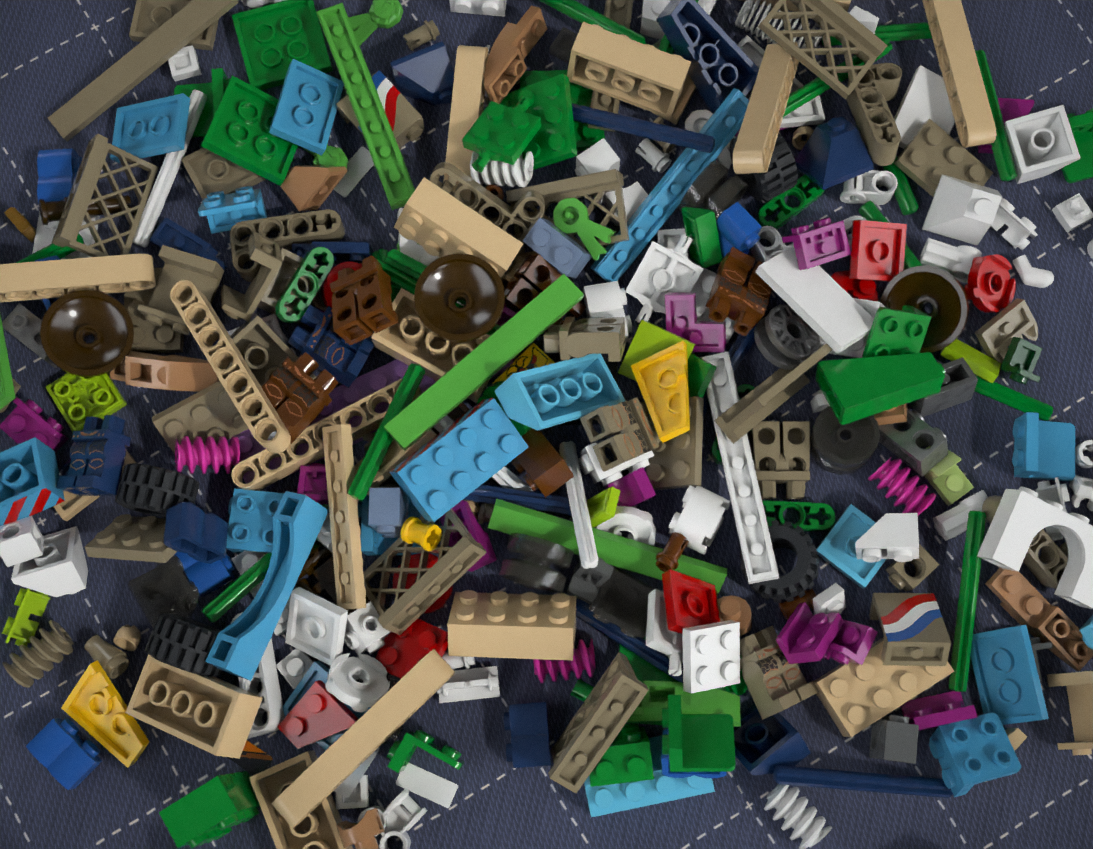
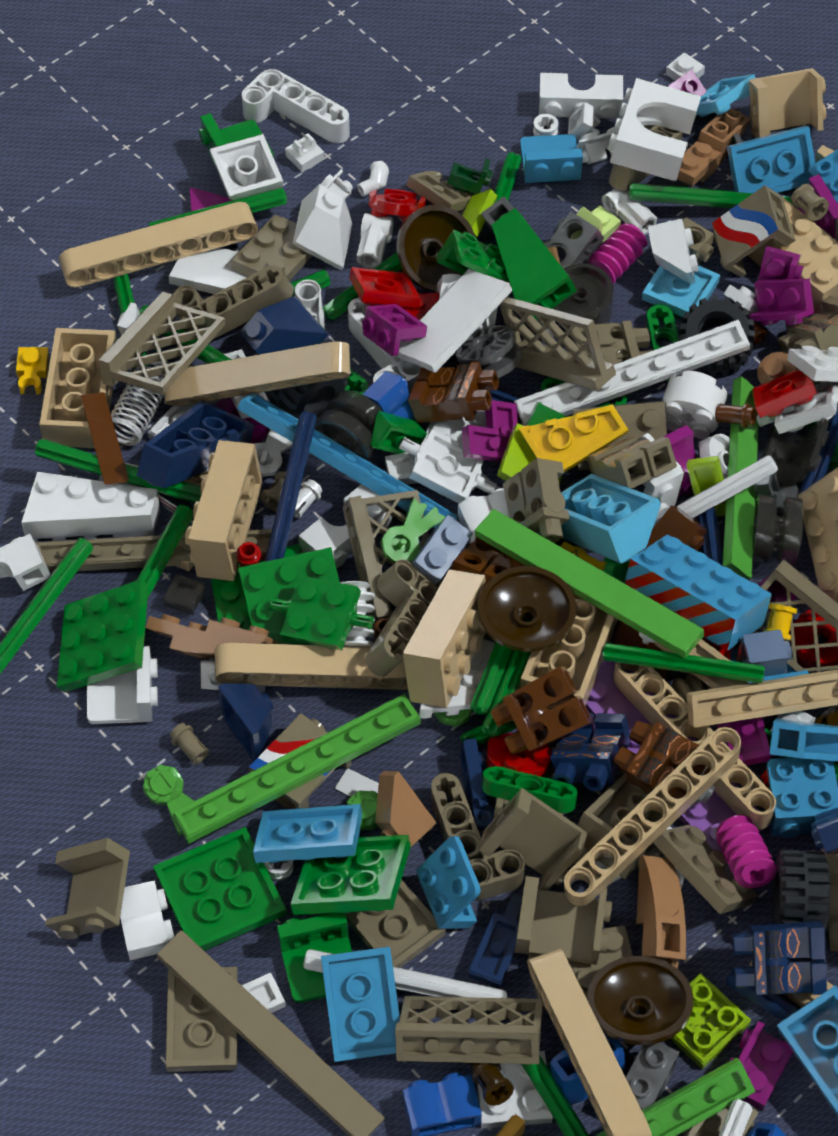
camera: 100 degrees left, 20 degrees down
(581, 89) = (248, 554): none -> red pin
(937, 696) = (810, 202): none -> dark tan bush

